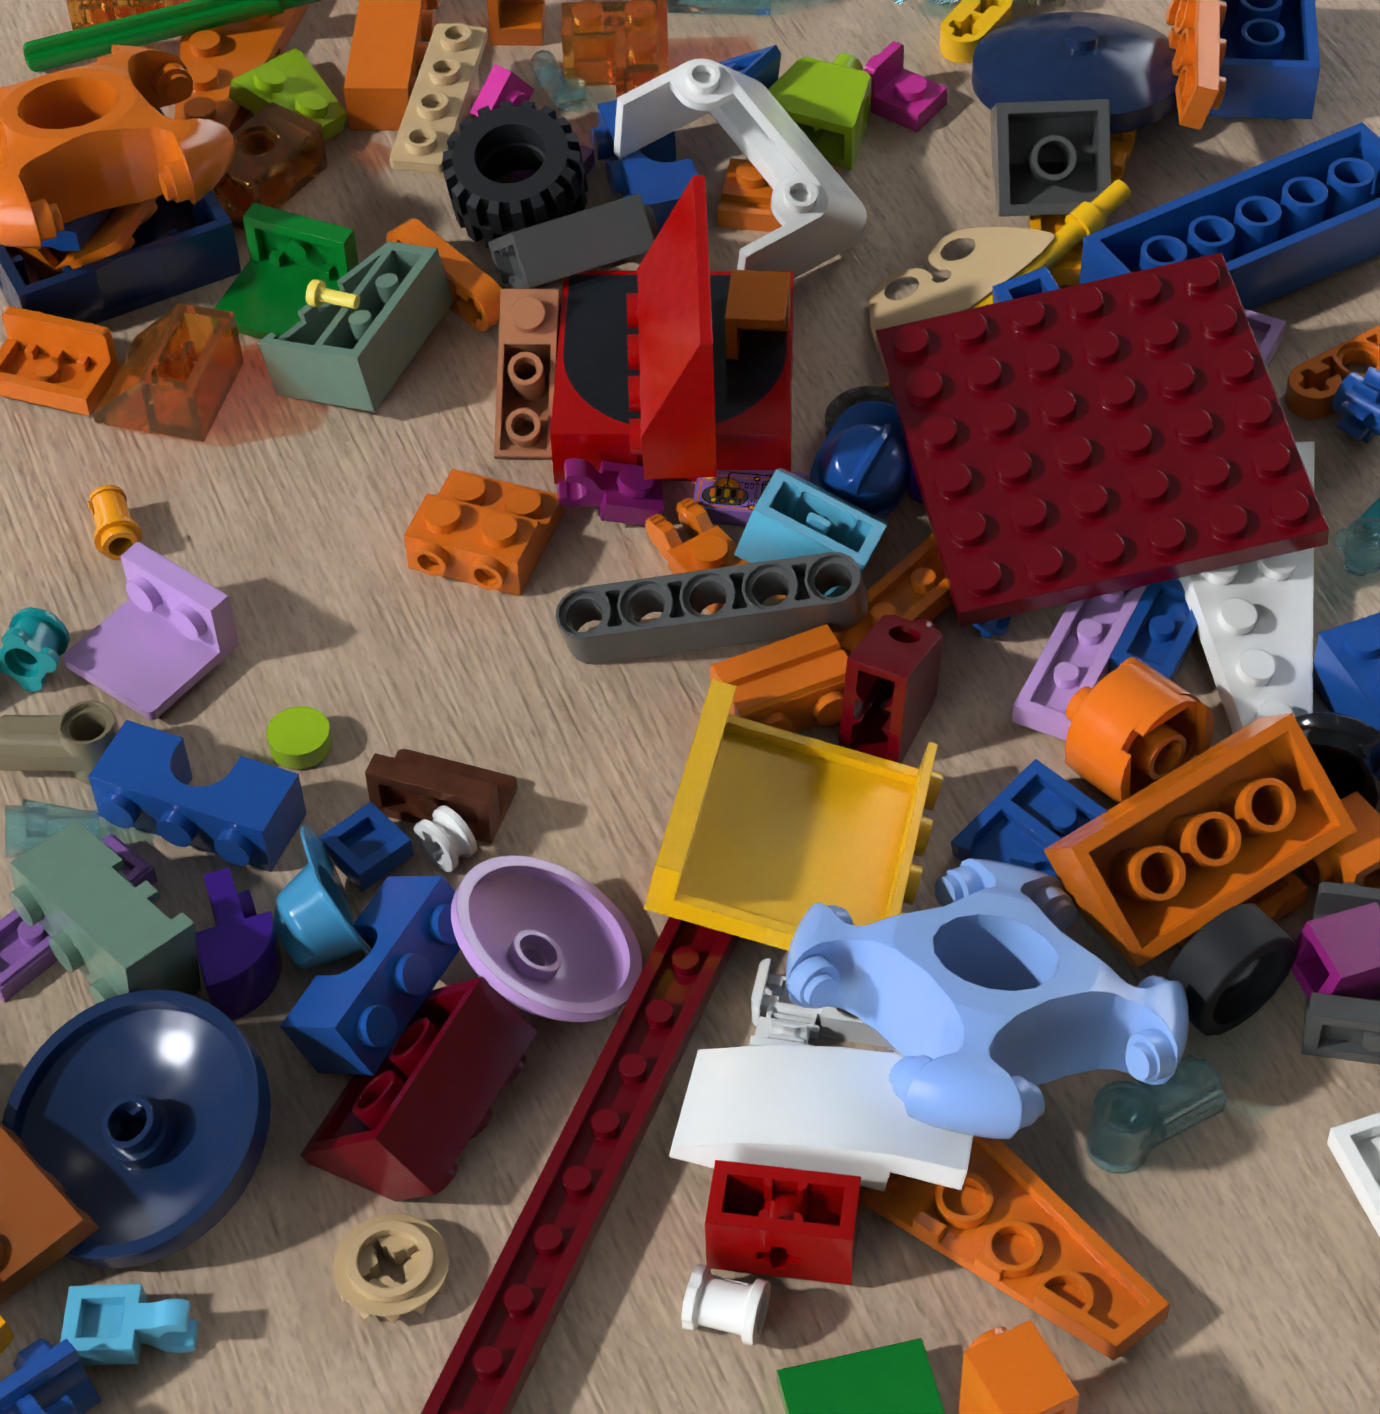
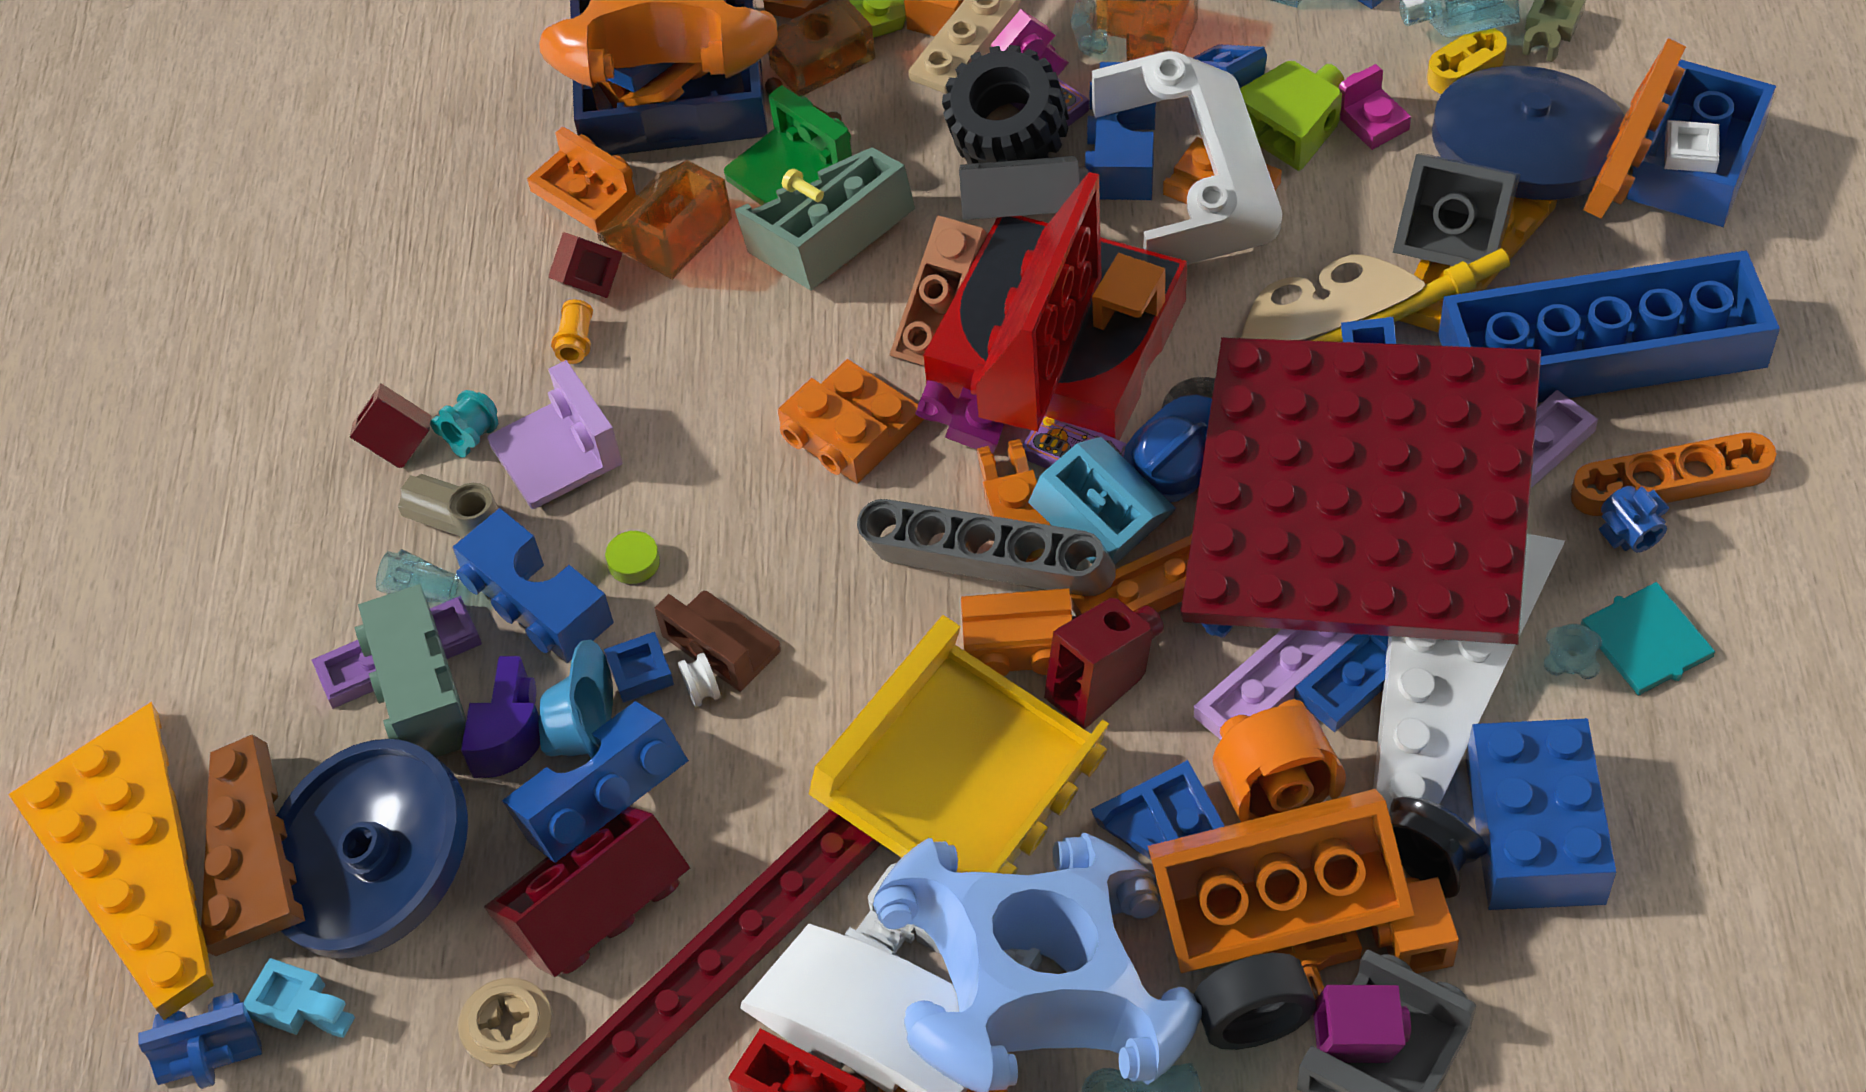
camera: 25 degrees right, 5 degrees up
(95, 447) = (585, 265): none -> dark red panel
(473, 291) = (926, 193): orange beam -> none
(545, 939) = (743, 775): lavender dish -> none
(1261, 38) = (1692, 146): none -> white tile

